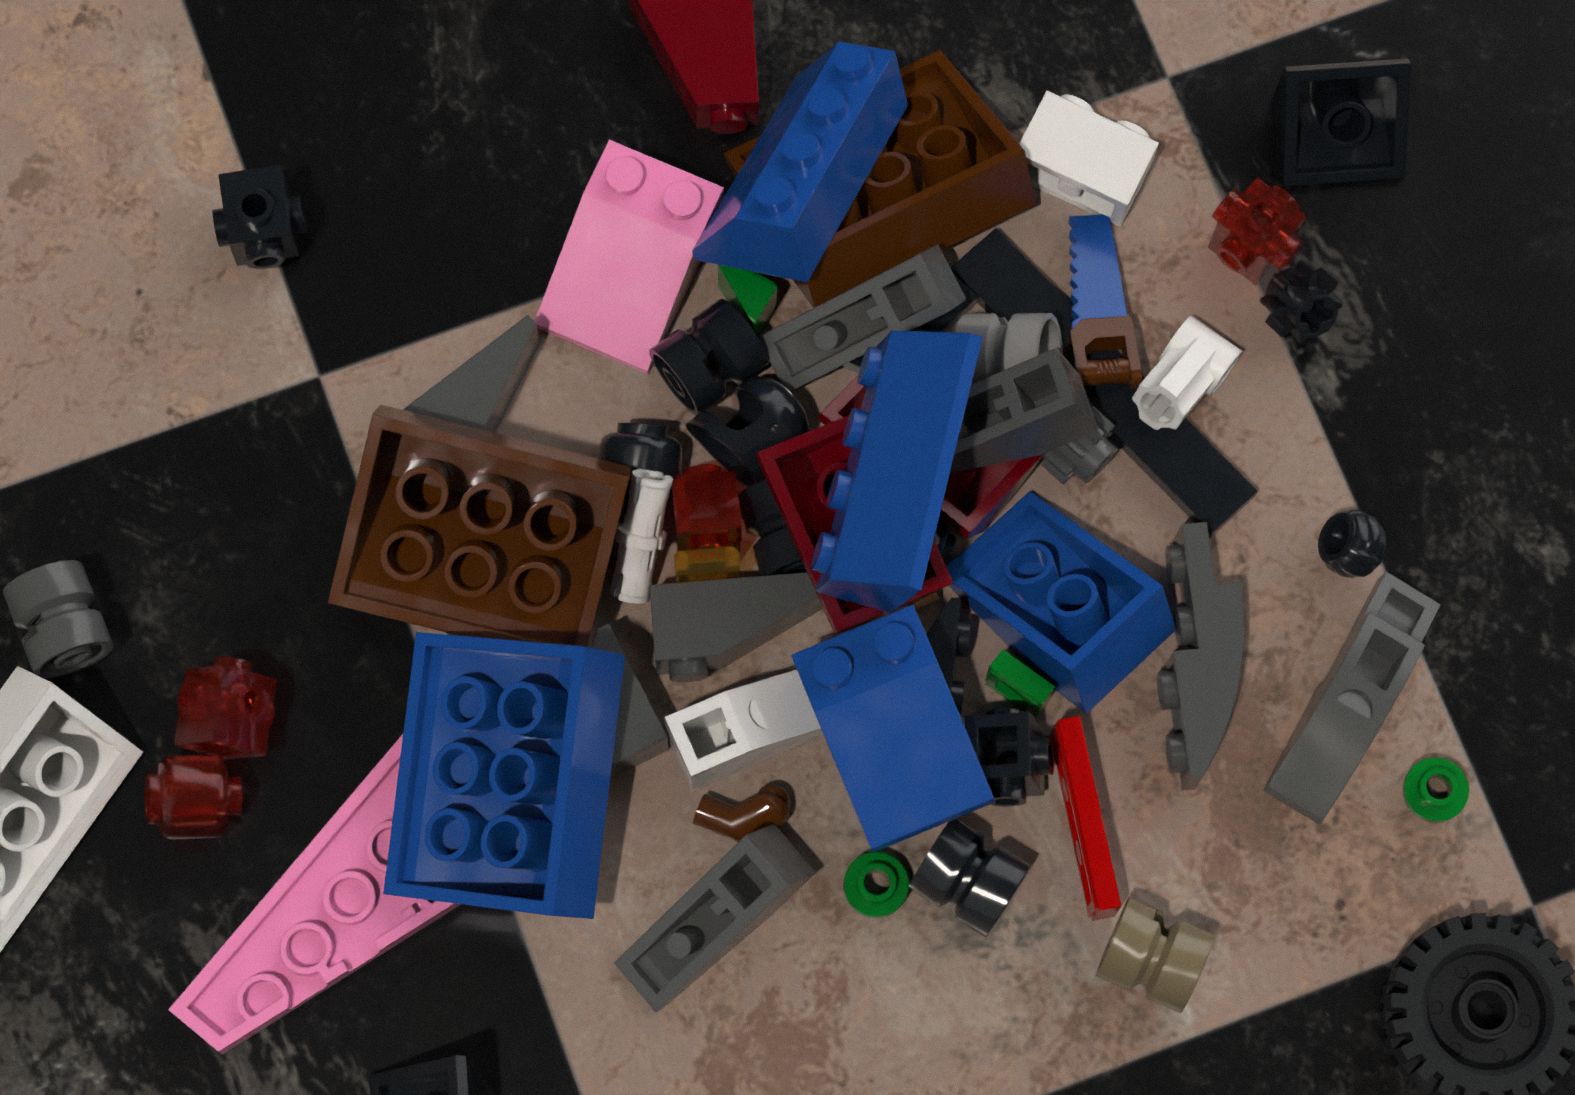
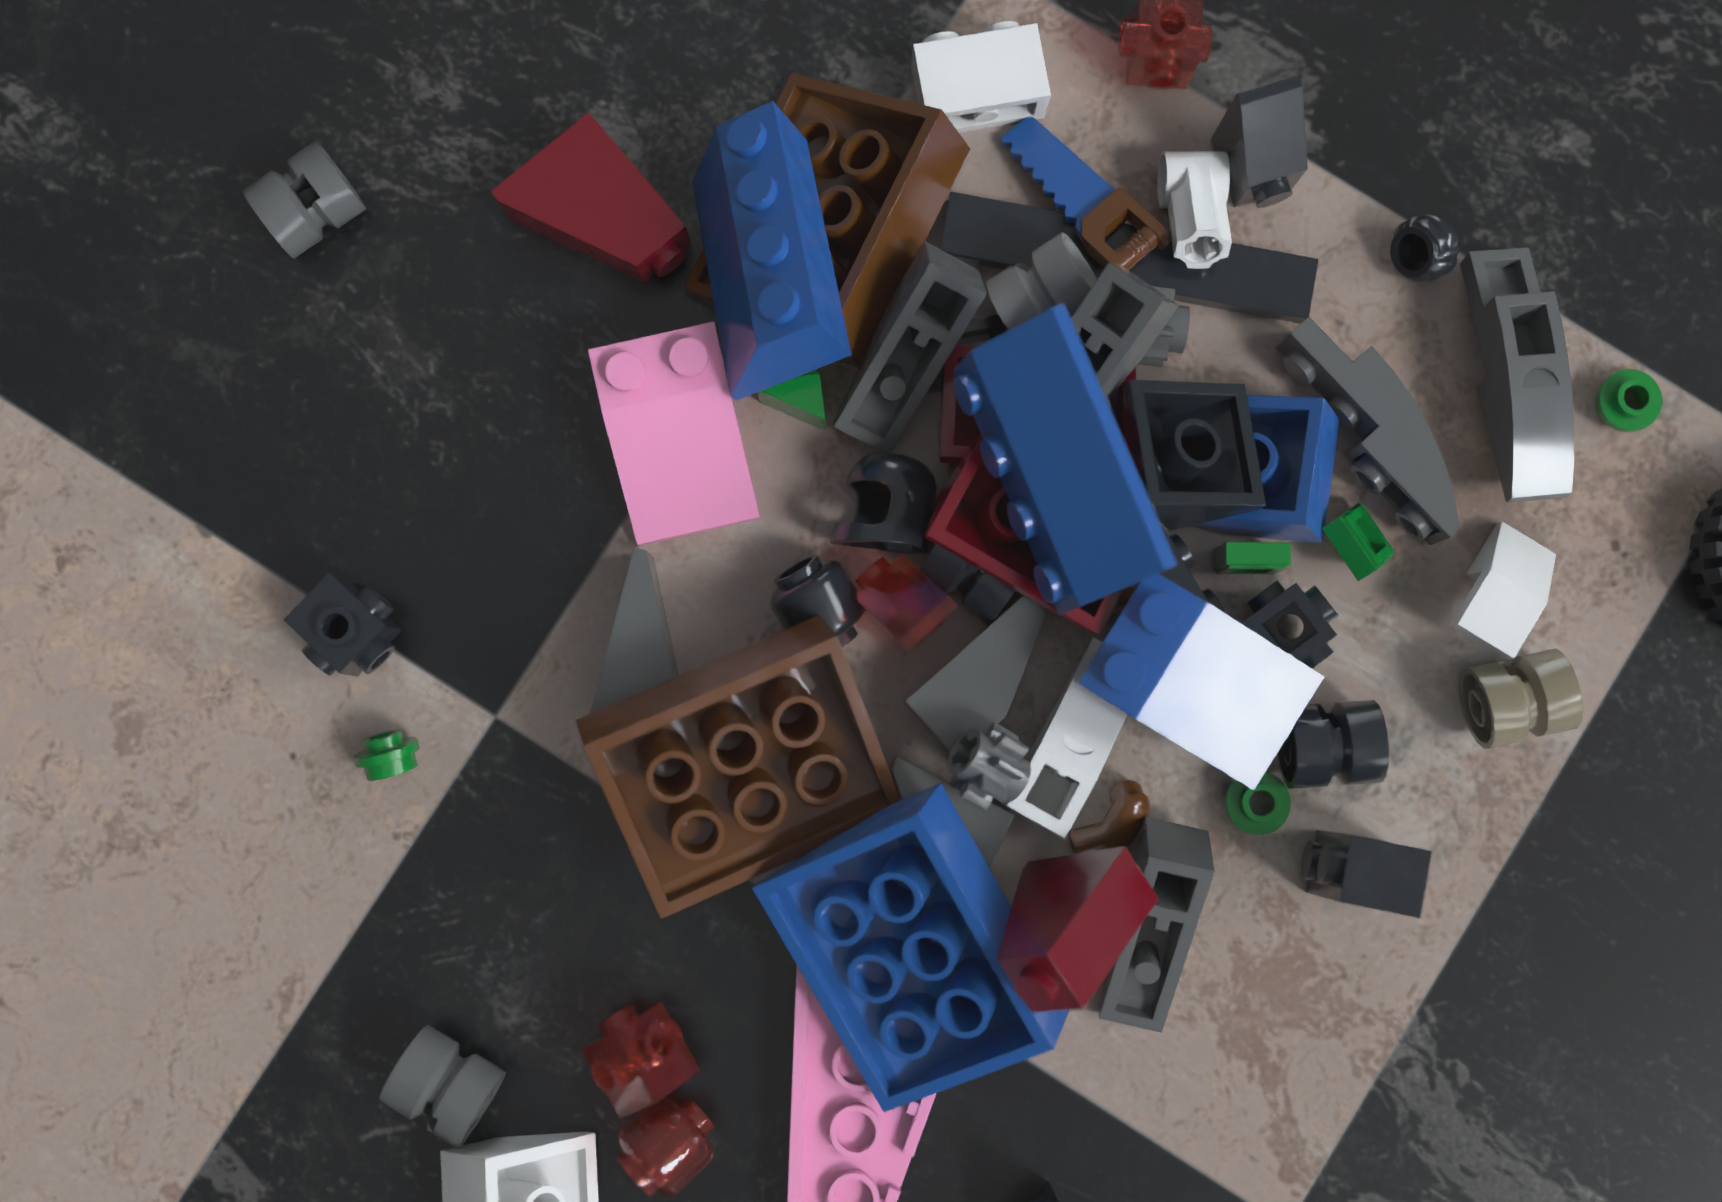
camera: 35 degrees left, 10 degrees up
(214, 339) = (387, 755): none -> green plate
(640, 536) = (867, 662): white pin -> none
(643, 838) = (1072, 925): none -> dark red slope
(674, 675) = (989, 766): none -> dark grey gear
(706, 564) = (935, 647): clear yellow tile -> none
(724, 340) = (805, 470): black wheel -> none
(914, 987) = (1366, 872): none -> black brick
(1024, 553) = (1194, 450): none -> black slope
(1085, 819) = (1385, 629): red tile -> none
(1118, 735) = (1359, 541): none -> green tile
(1209, 859) = (1508, 593): none -> white slope
(1274, 363) = (1264, 142): none -> black slope
(1301, 302) = (1239, 68): black gear -> none

